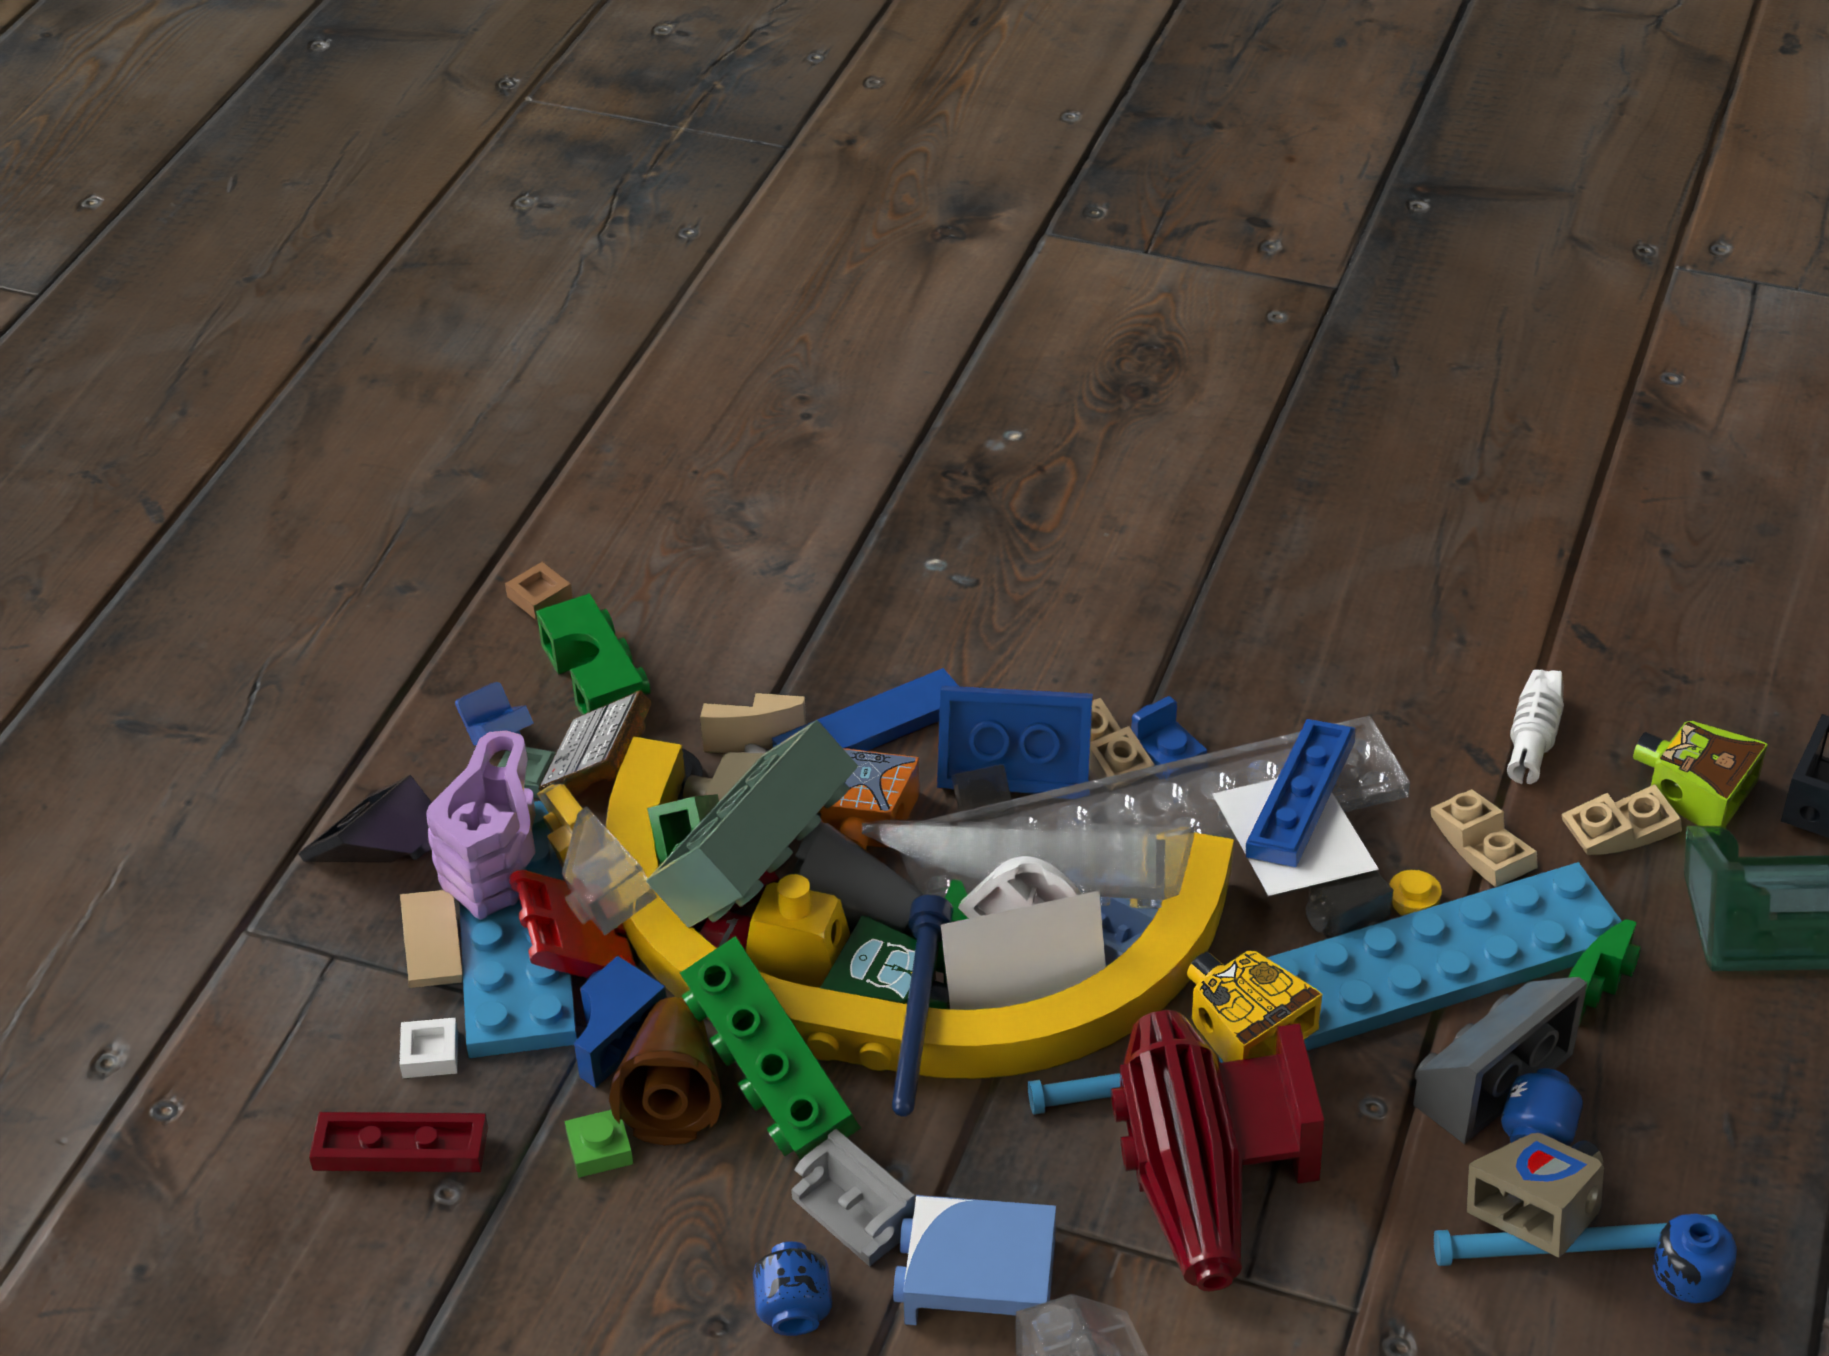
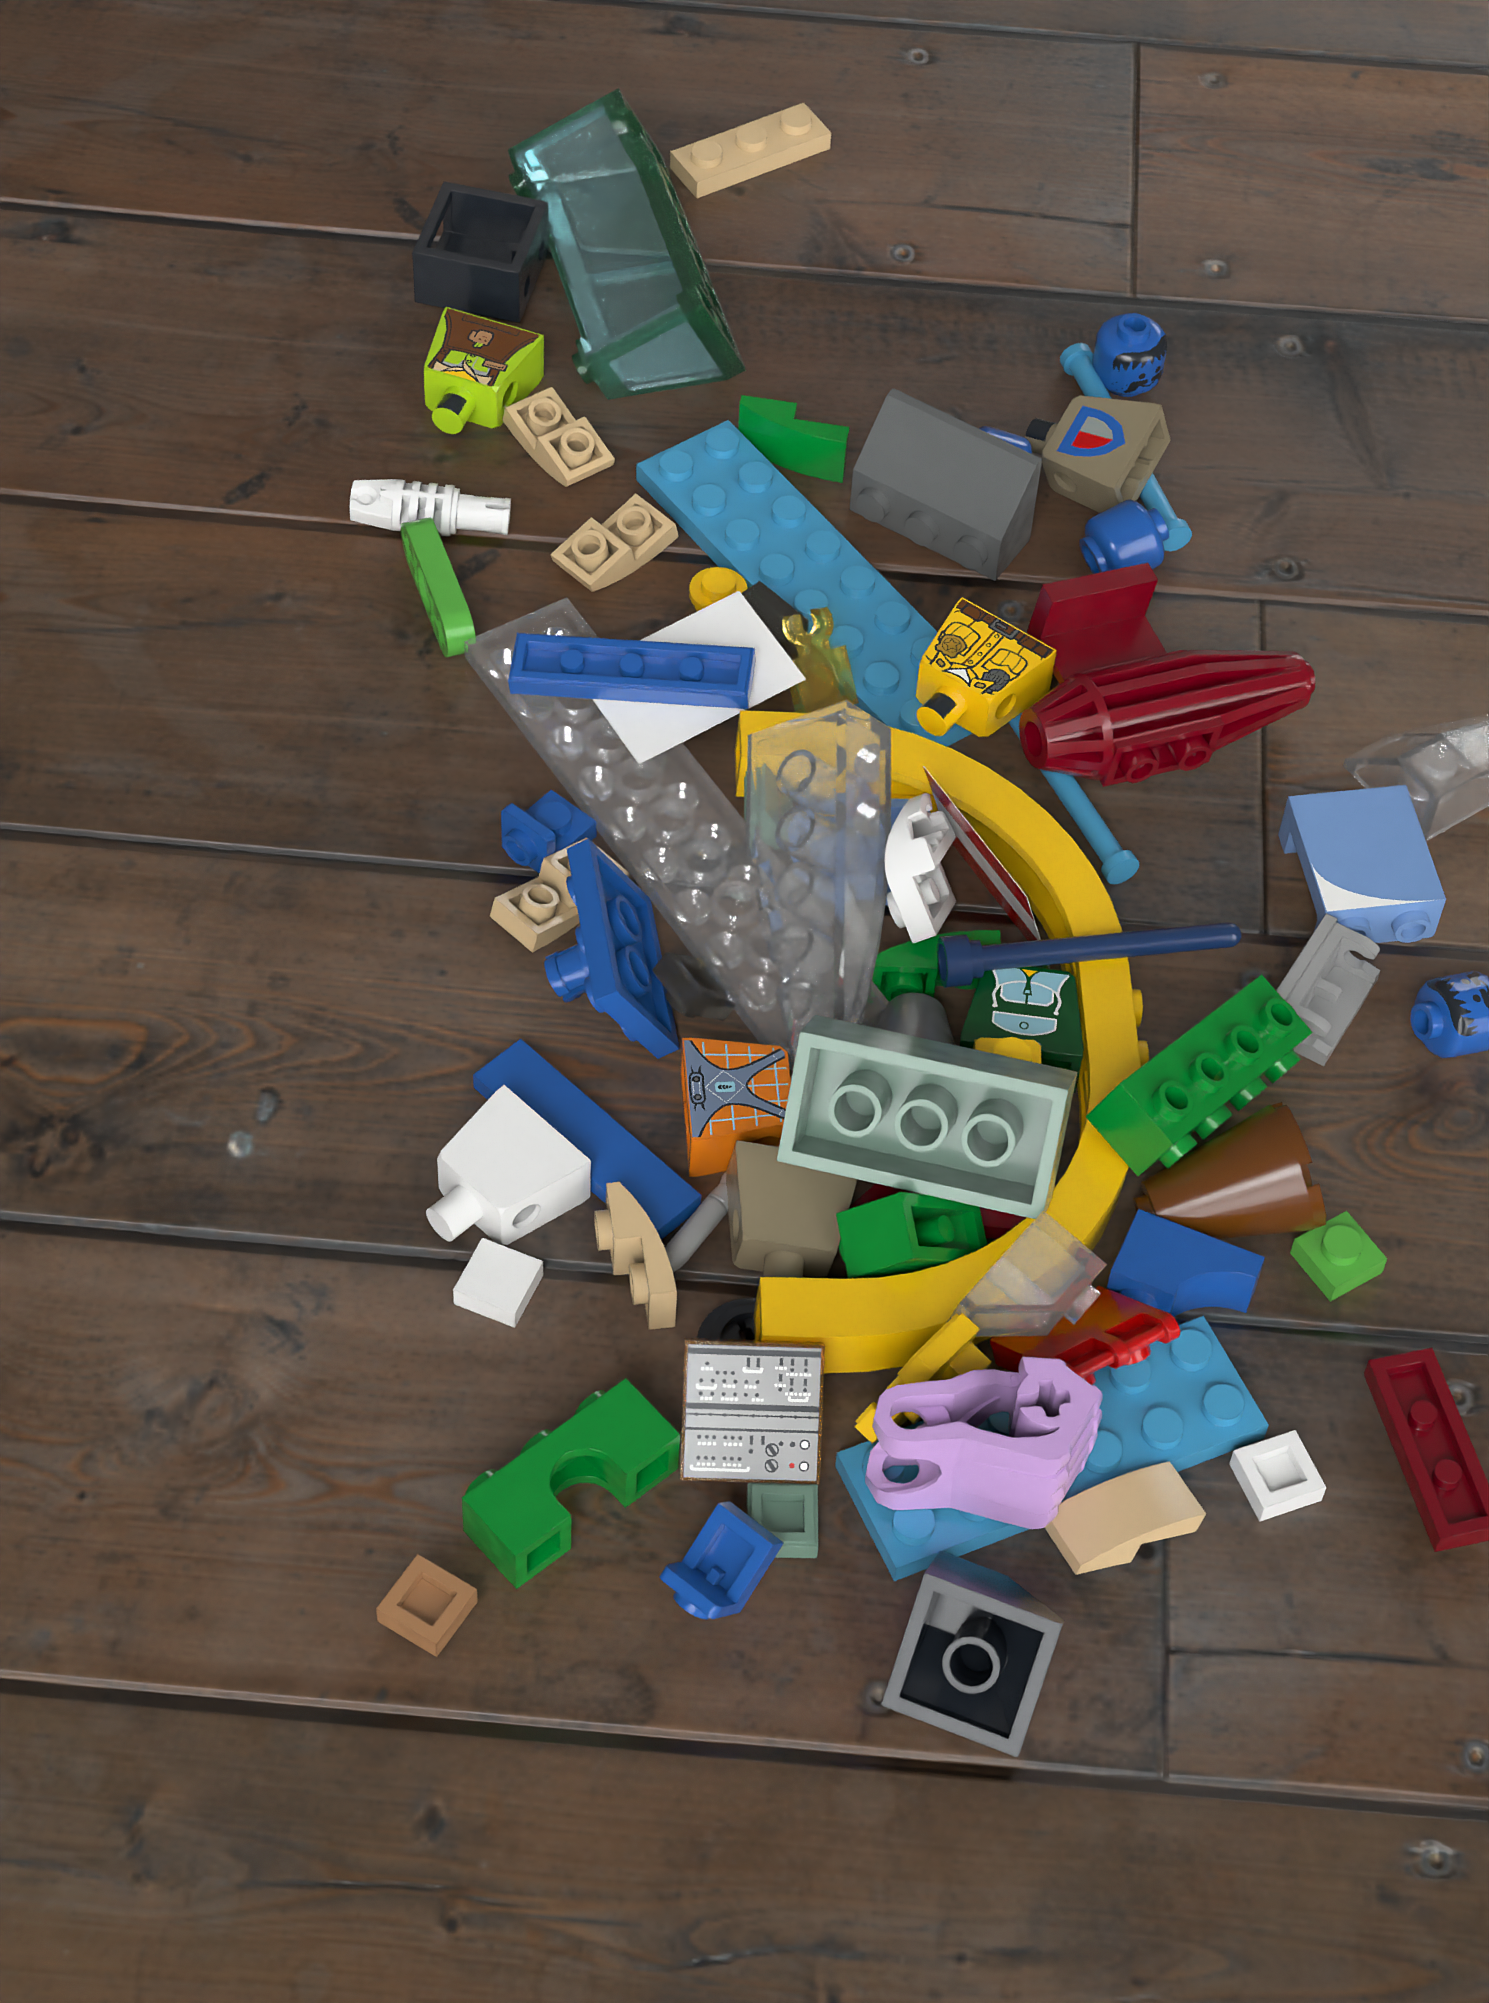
camera: 110 degrees left, 10 degrees up
(769, 663) = (498, 1282): none -> white tile
(849, 664) = (507, 1173): none -> white torso
(1291, 920) = (824, 667): none -> clear yellow plate
(1424, 703) = (437, 585): none -> bright green beam
(1425, 1185) = (1124, 537): none -> blue head

